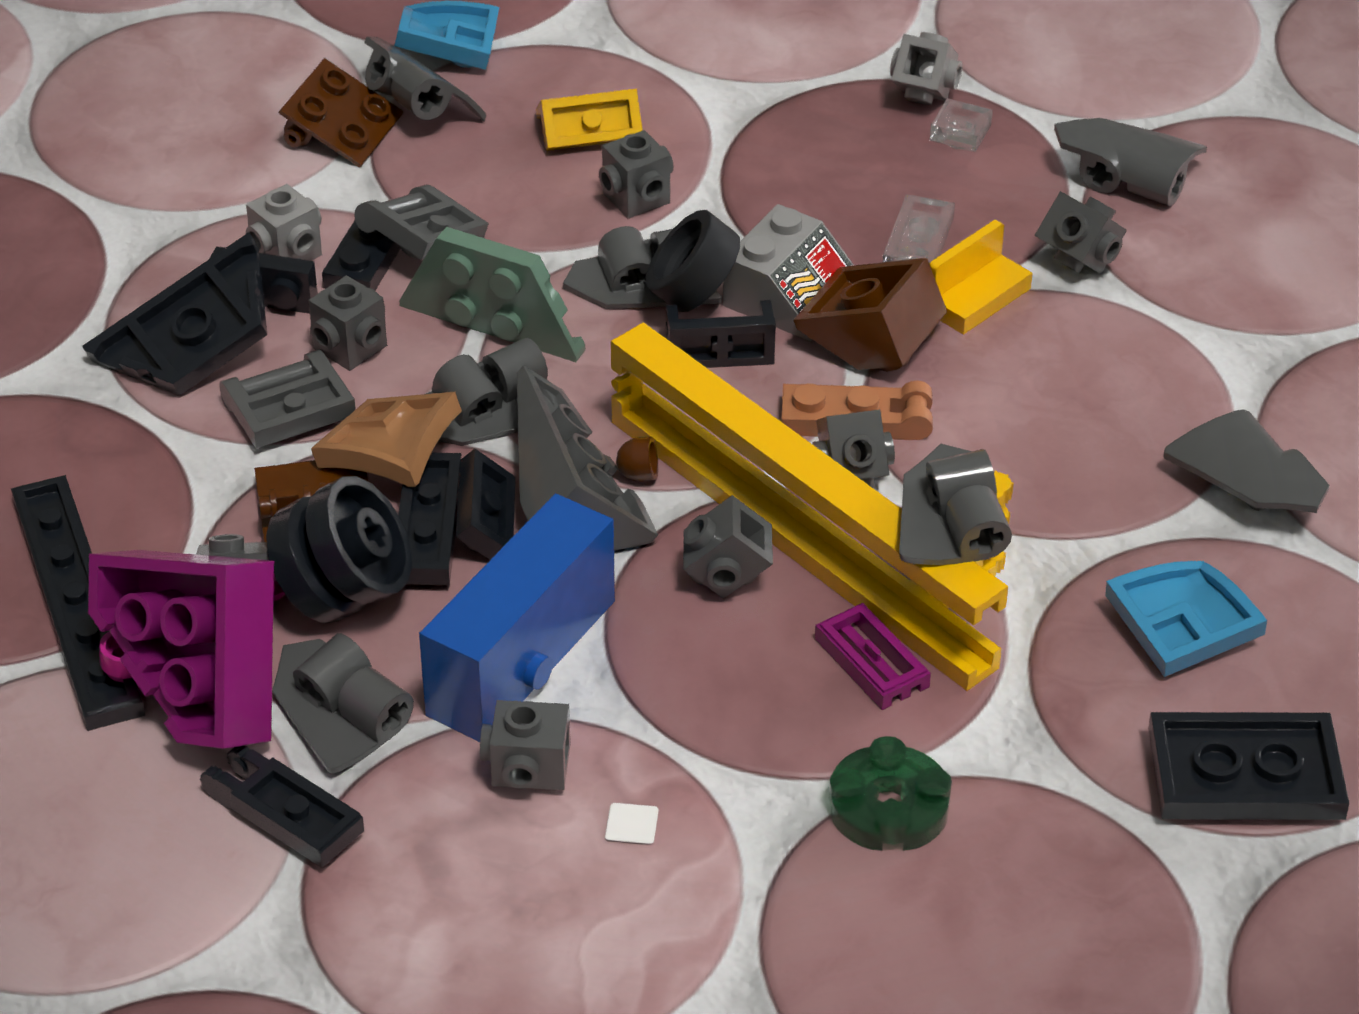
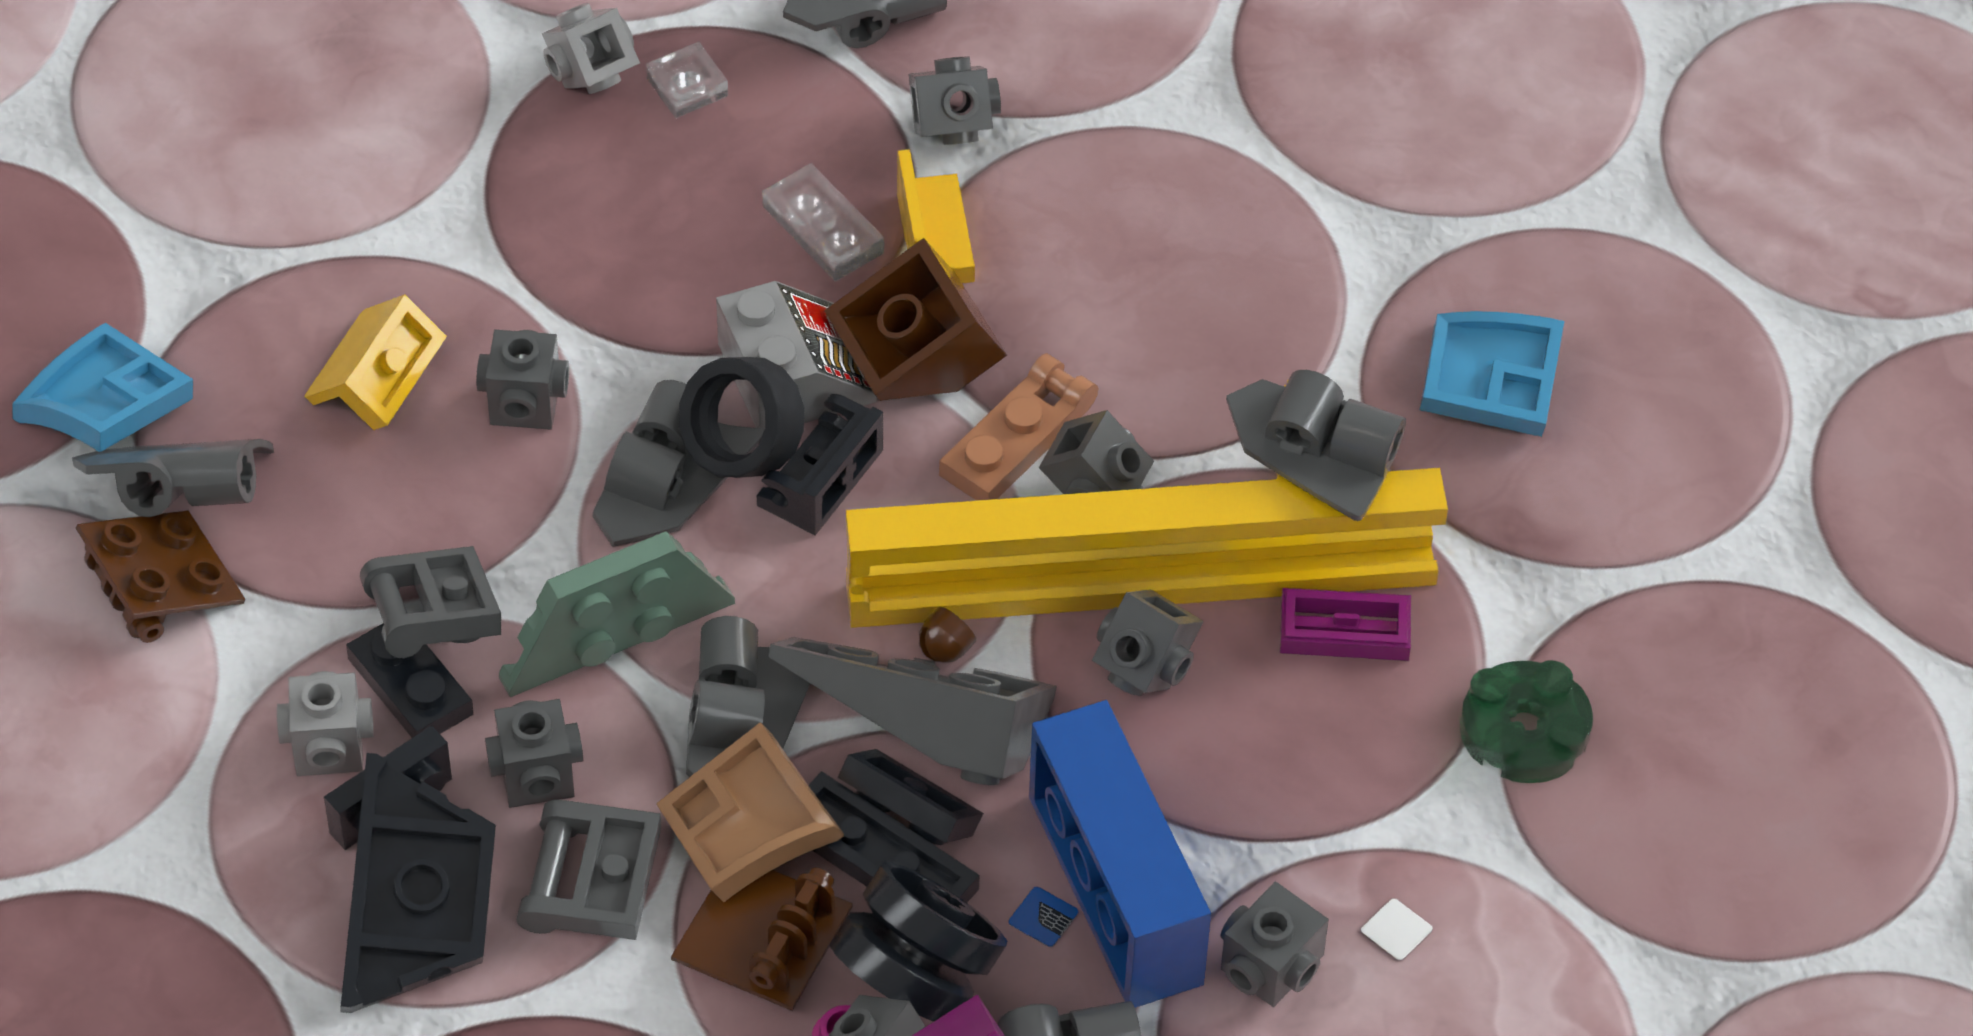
camera: 55 degrees left, 10 degrees up
(1247, 766) = (1698, 451): black plate -> none
(1249, 464) = (1365, 201): dark grey panel -> none

